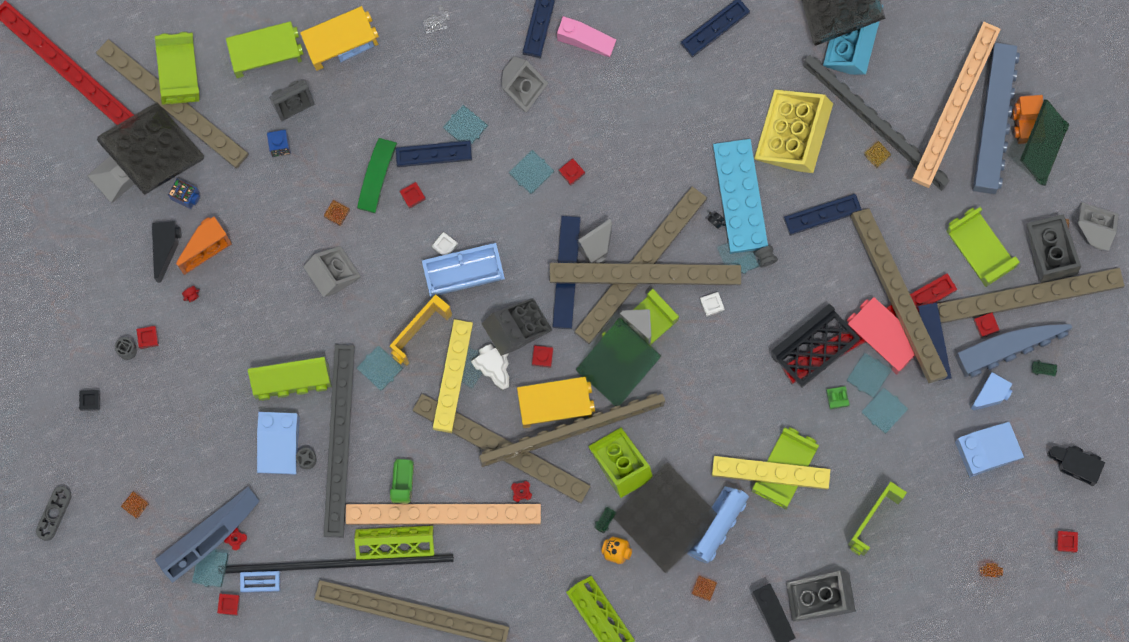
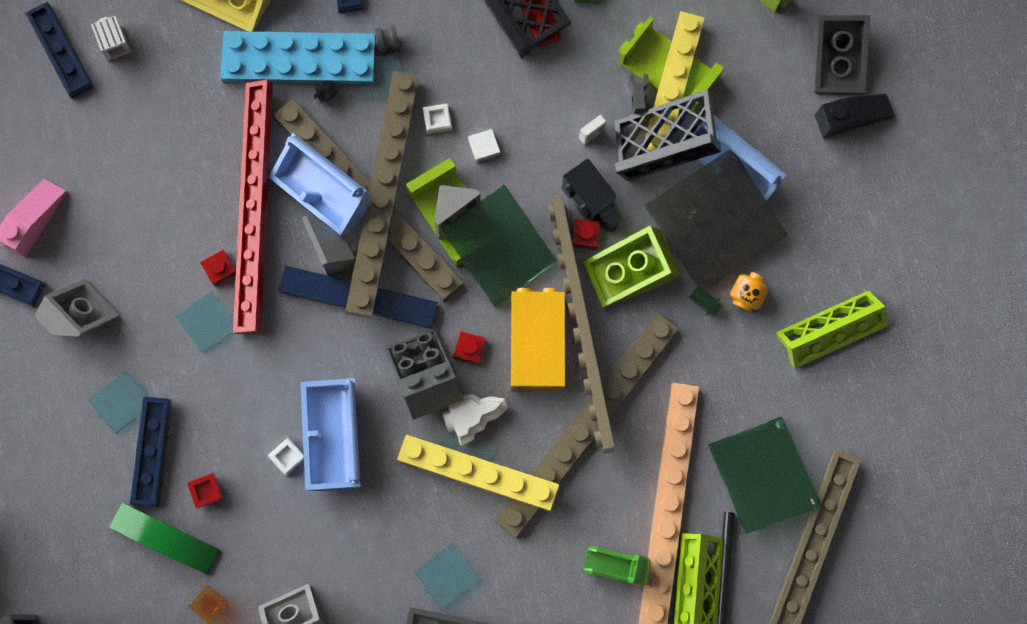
camera: 90 degrees left, 0 degrees up
(435, 304) = (375, 476): yellow panel -> none
(483, 578) = (764, 475): none -> clear green piece
(521, 486) = (657, 400): red plate -> none
(620, 186) = (253, 208): none -> plate
(640, 228) = (320, 186): none -> light blue container
(642, 425) = (585, 234): none -> red plate
(671, 424) = (591, 194): none -> black hinge
(697, 341) = (483, 145): none -> white tile
(704, 588) = (810, 192): clear orange plate -> none
(708, 476) = (674, 154): none -> black fence
(722, 417) = (592, 130): none -> white tile
(729, 61) = (111, 38): none -> white brick
(751, 448) = (638, 100): none -> dark grey plate

